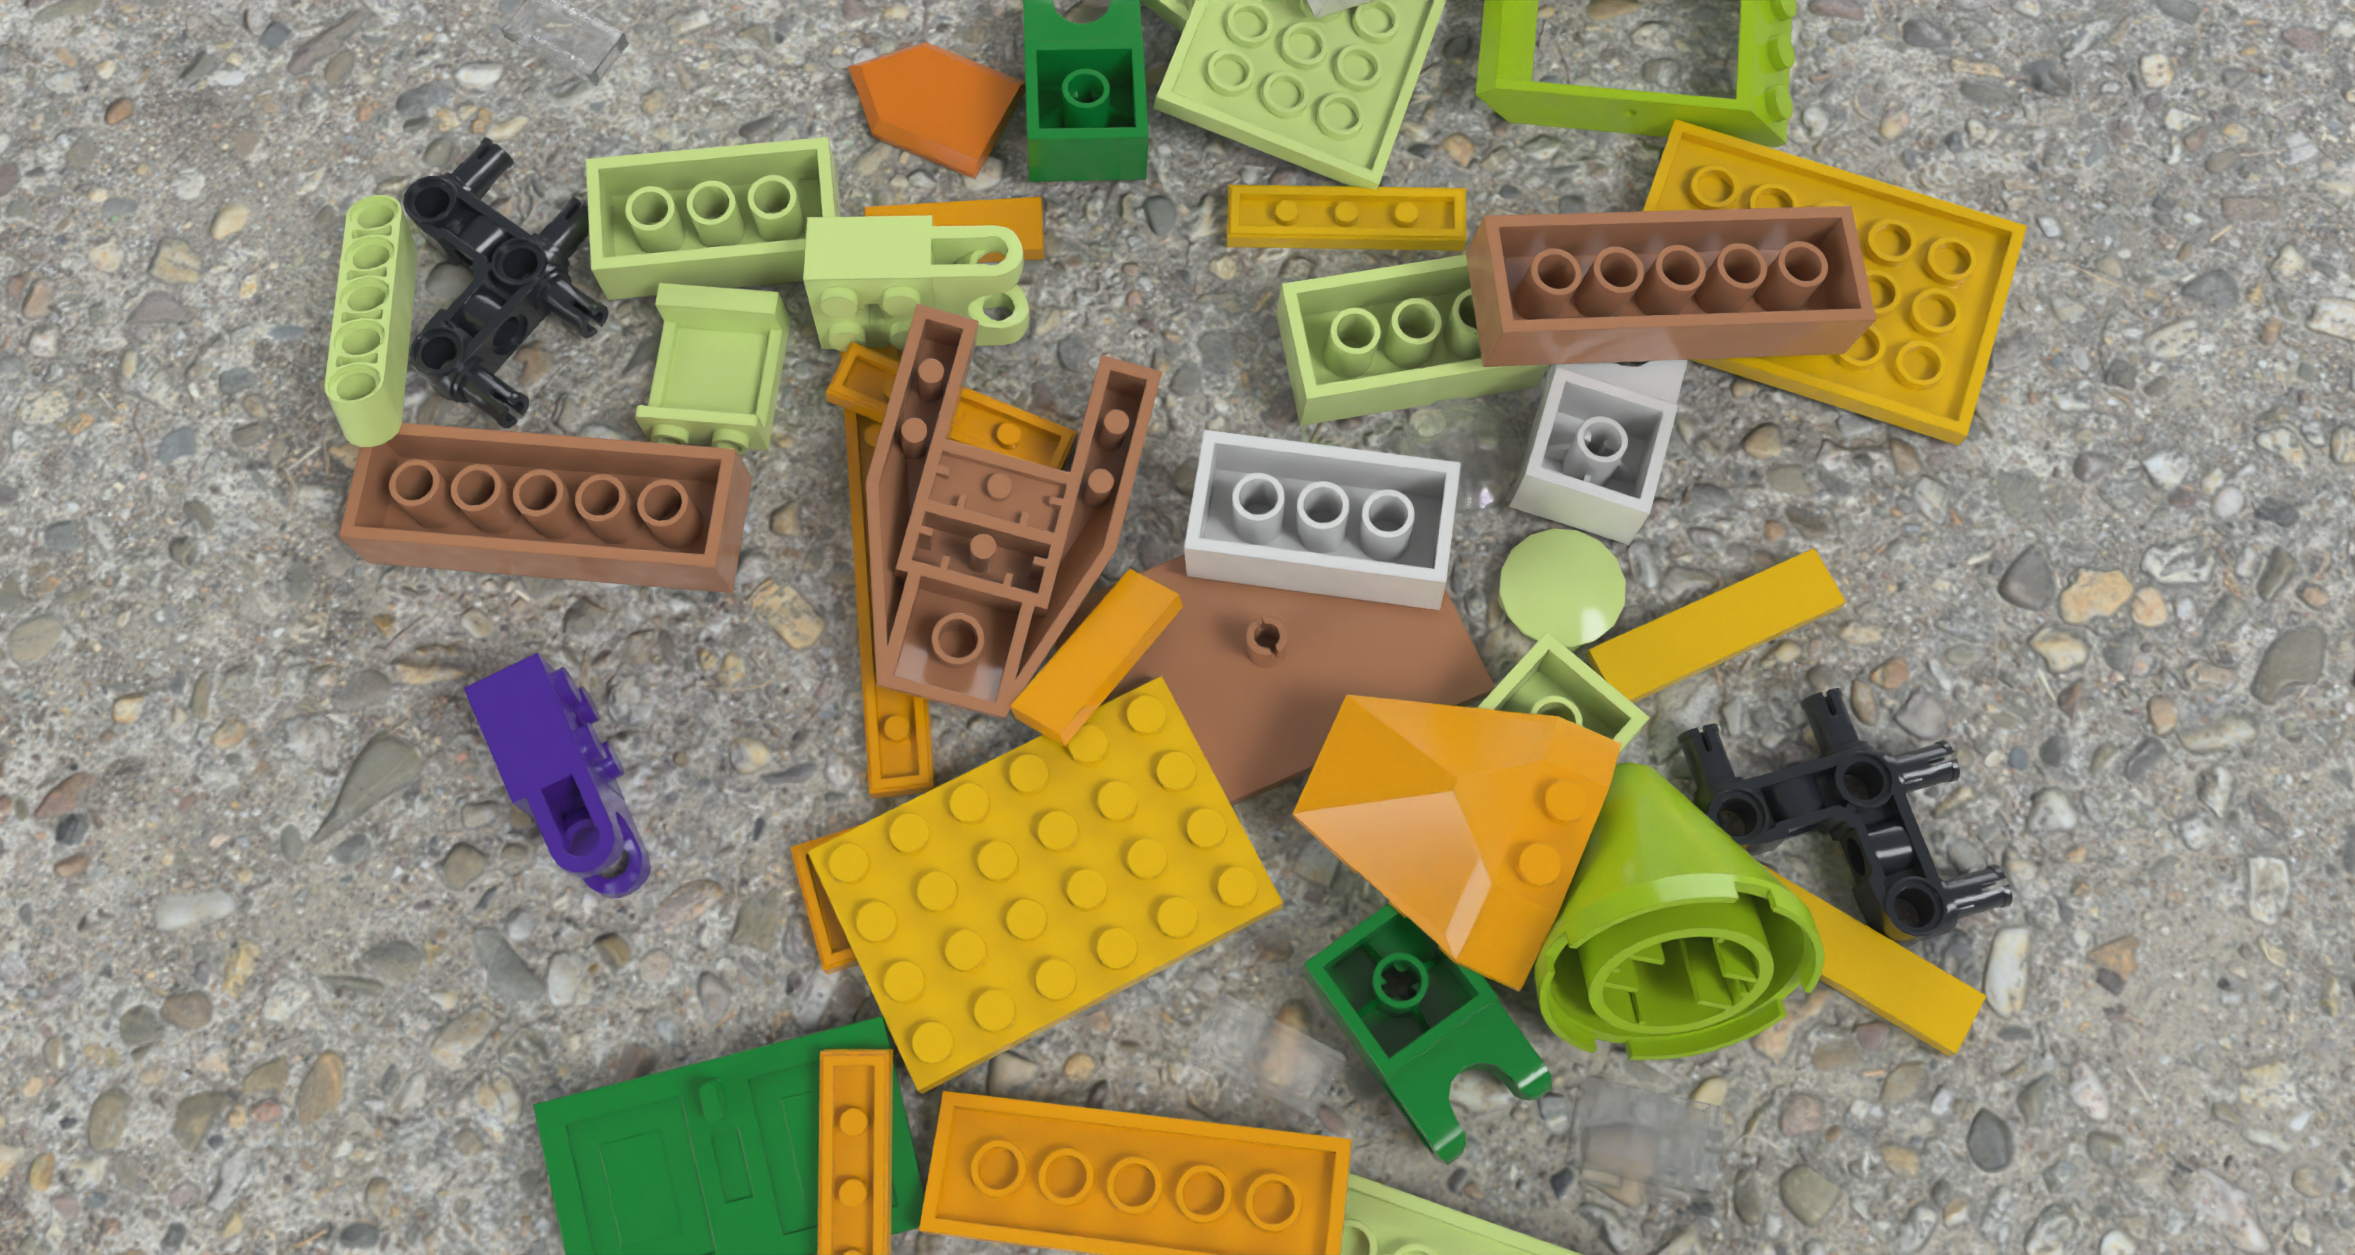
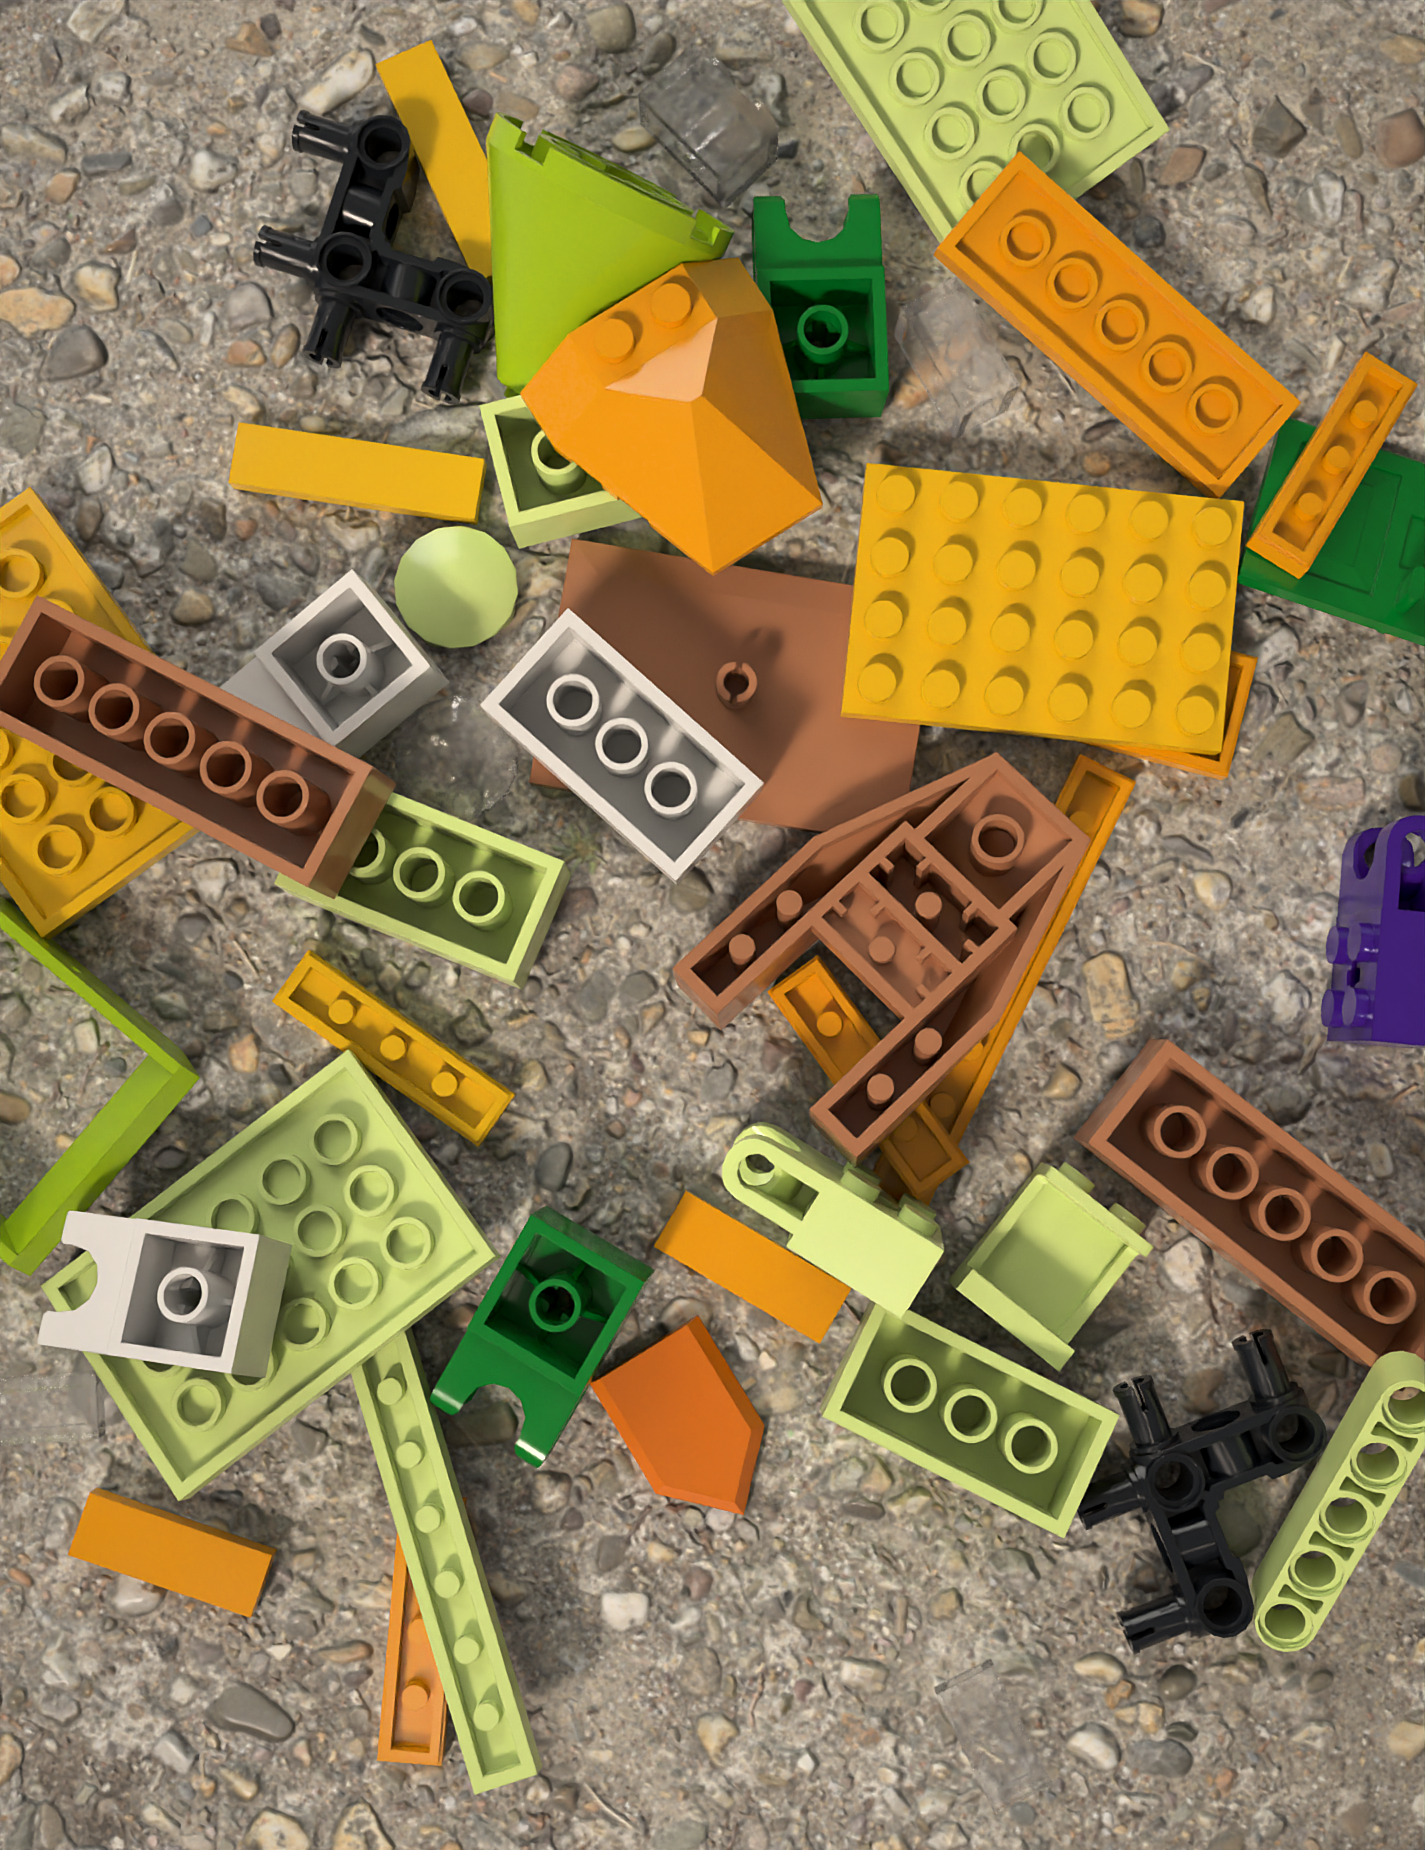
camera: 155 degrees left, 15 degrees up
(1096, 657) = (885, 760): light orange tile -> none

